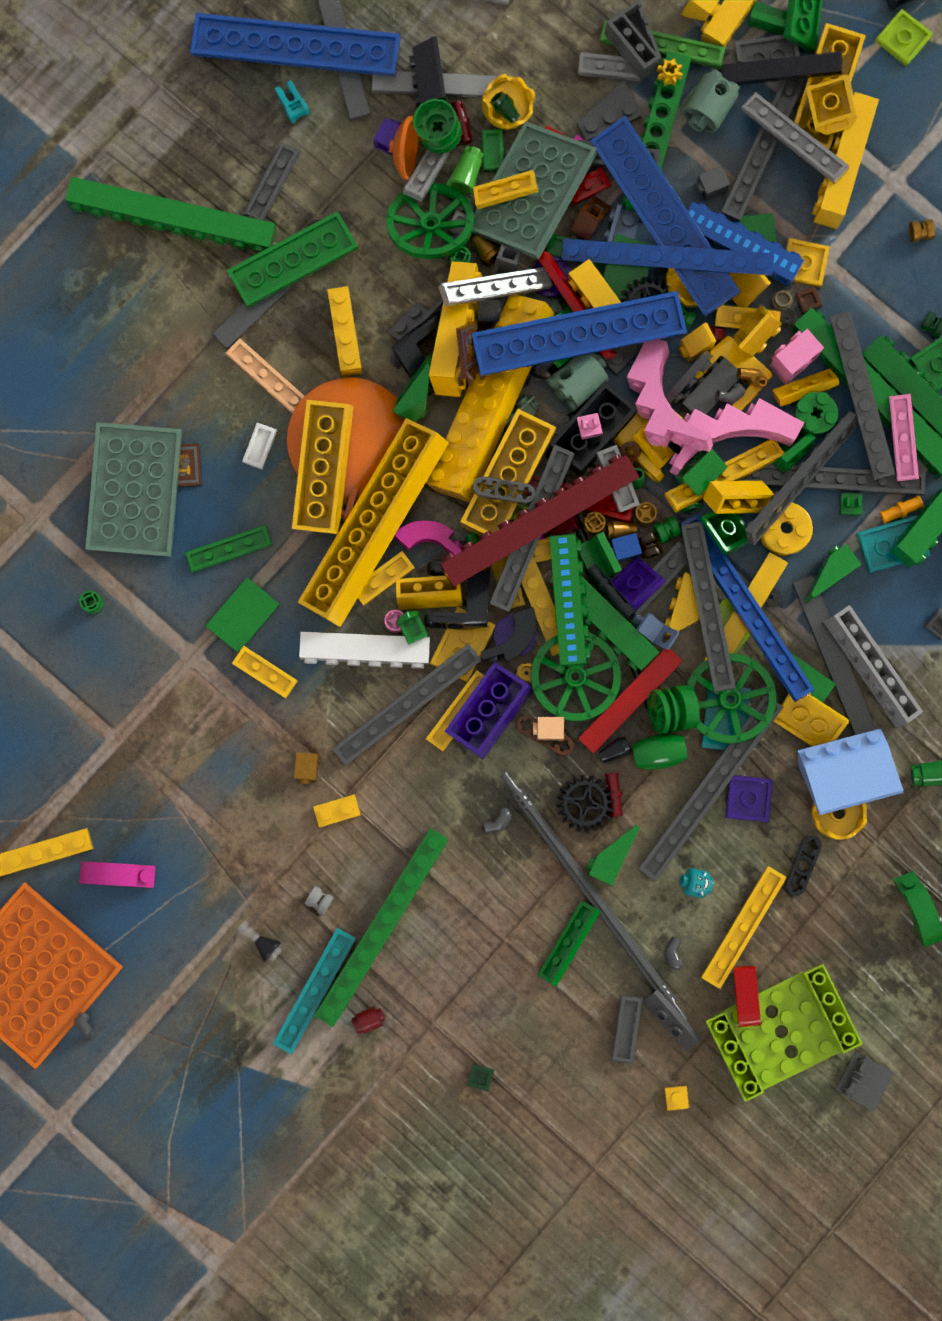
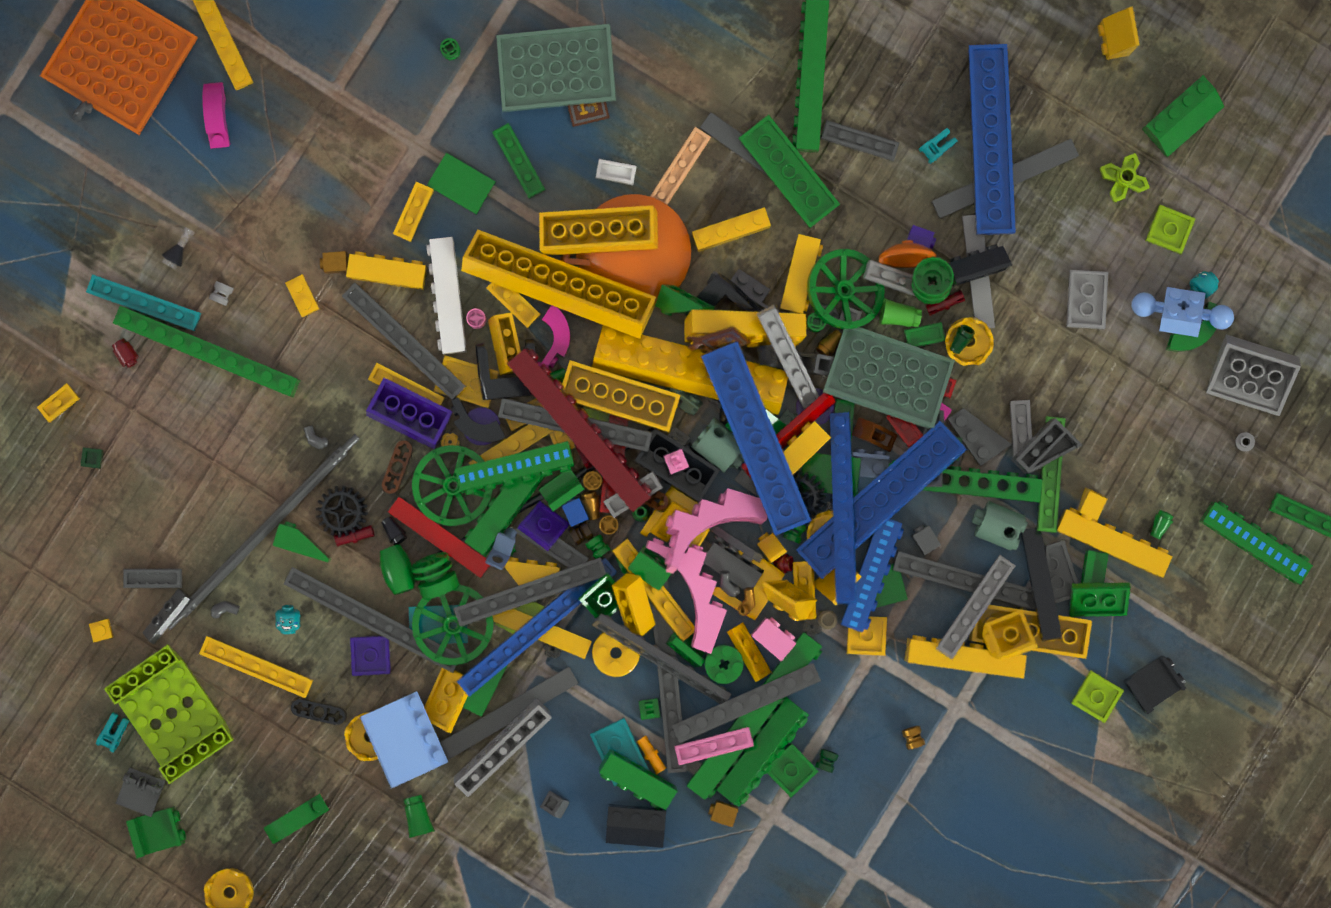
camera: 90 degrees right, 5 degrees up
(326, 711) = (385, 271): none -> yellow brick
(405, 268) = (803, 259): none -> yellow brick
(411, 1106) = (58, 402): none -> yellow plate
(412, 626) = (470, 334): green tile -> none
(487, 492) = (598, 380): dark grey beam -> none
(505, 189) = (883, 351): yellow plate -> none
(549, 728) = (401, 468): light nougat brick -> none
(568, 943) = (218, 516): green plate -> none
(614, 595) = (533, 501): black pin -> none
(671, 67) = (1024, 485): yellow gear -> none
(747, 996) = (195, 677): red beam -> none
(800, 1101) = (106, 733): none -> teal piece
(808, 299) = (832, 643): reddish brown tile -> none
(833, 569) = (584, 700): green slope -> none
(911, 1069) = (156, 832): none -> green panel

